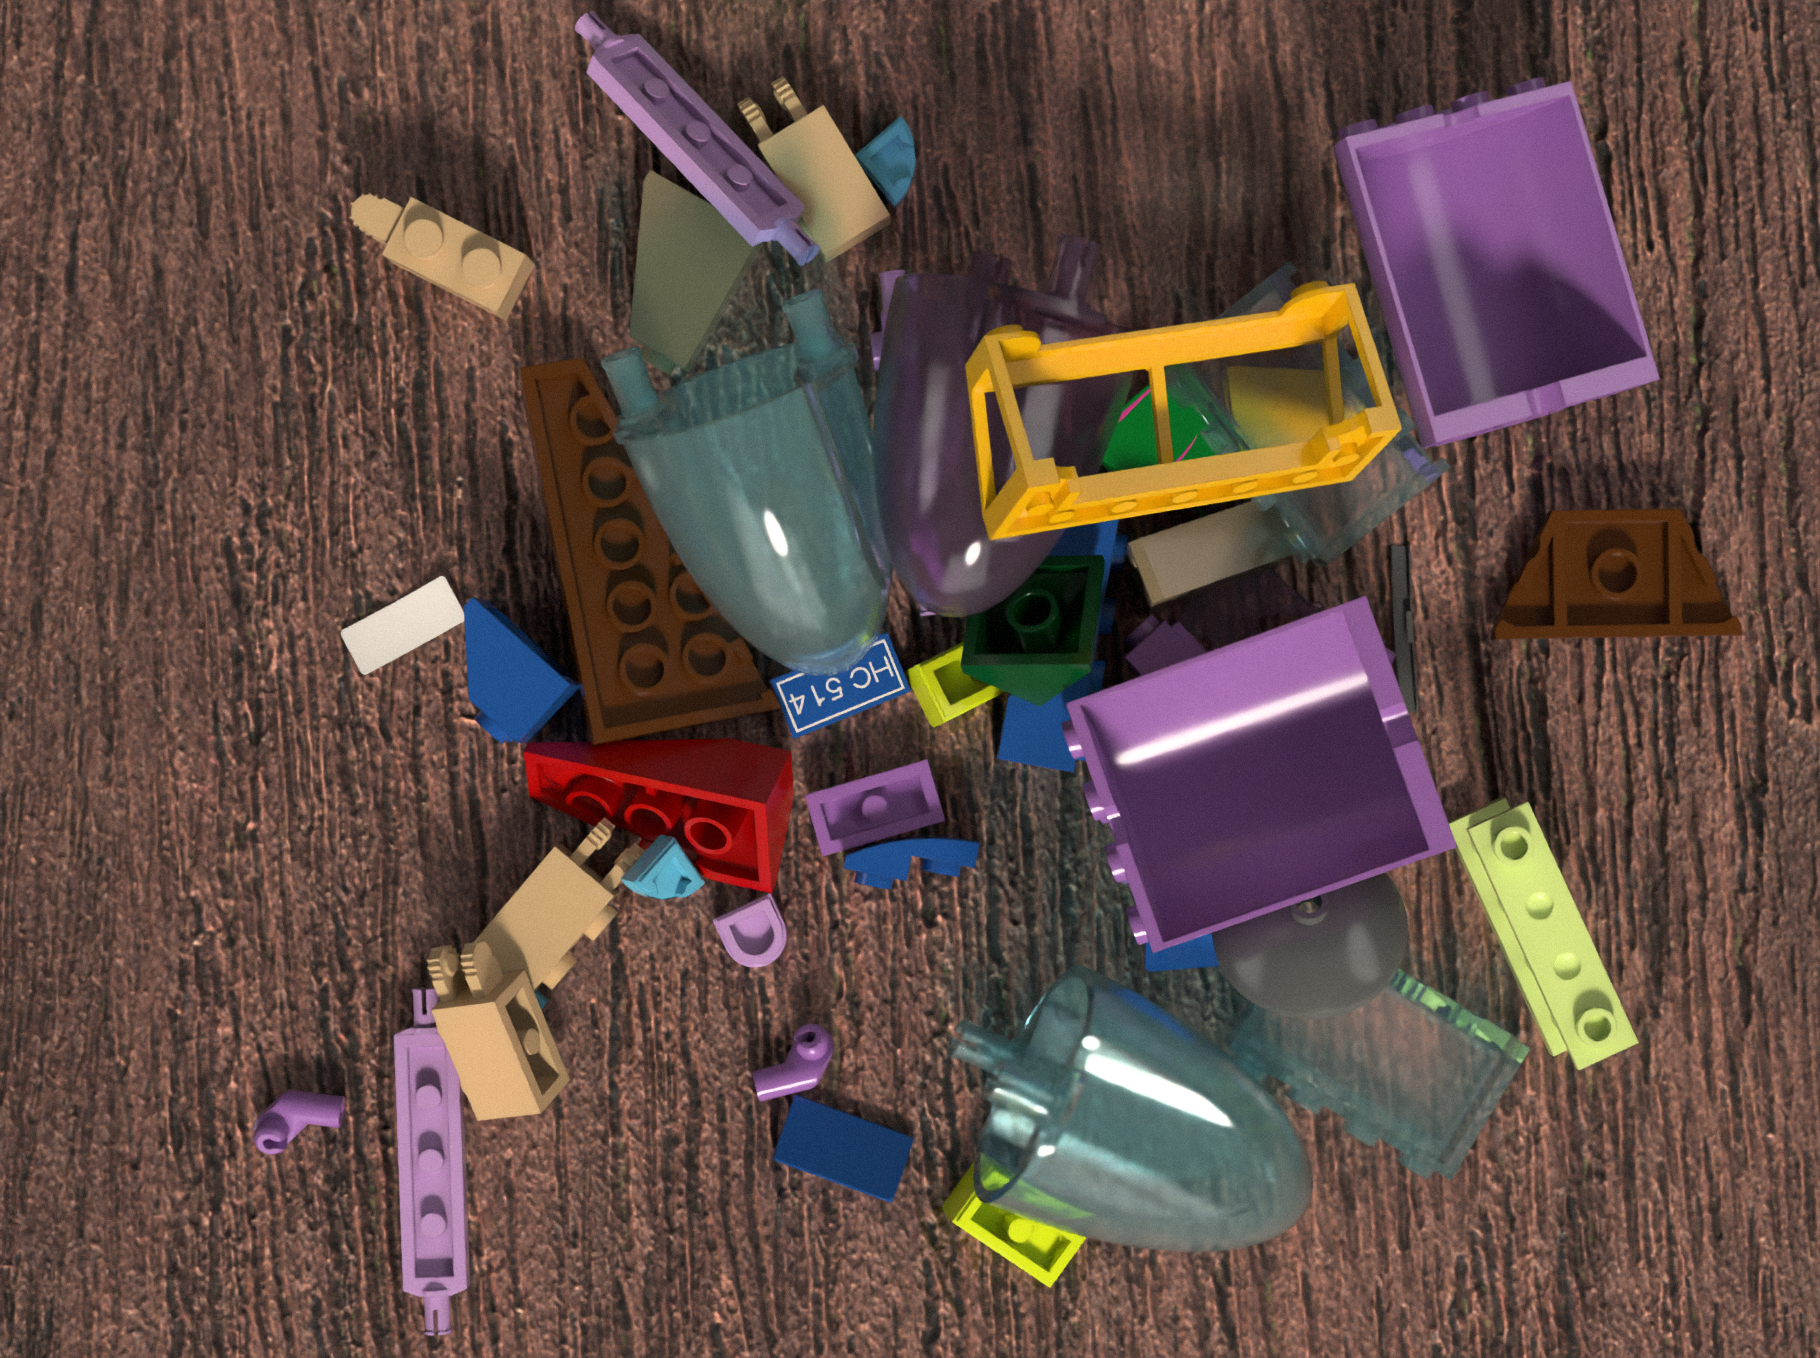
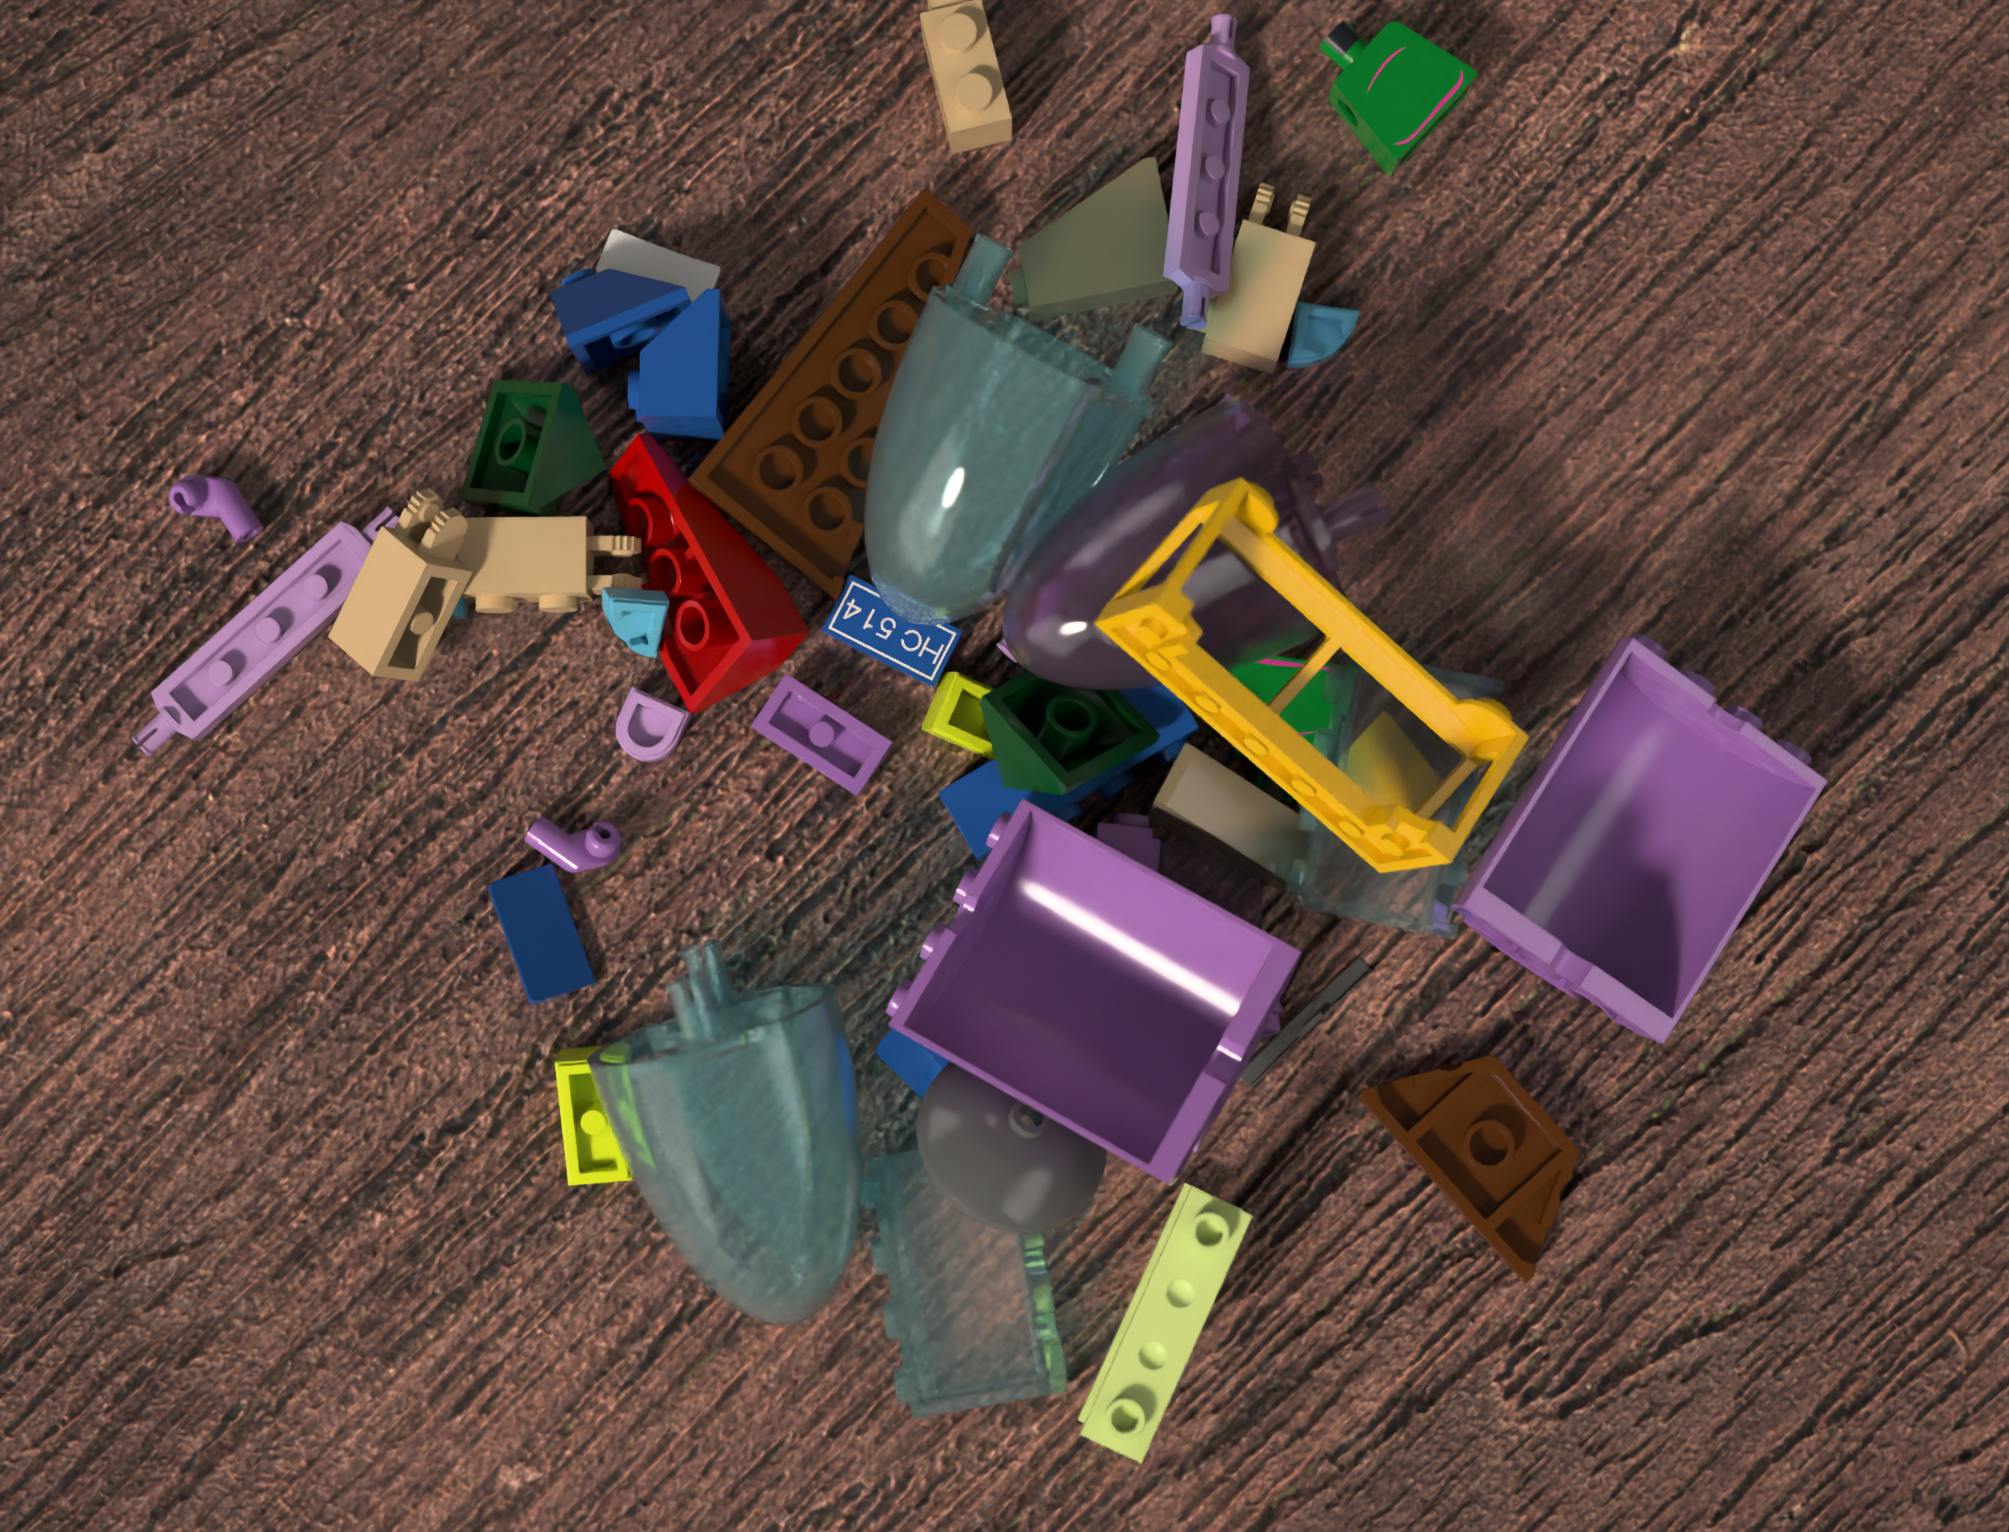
camera: 50 degrees right, 5 degrees down
(413, 689) = (614, 314): none -> blue slope
(462, 843) = (530, 449): none -> dark green slope
(890, 859) = (789, 777): blue slope -> none

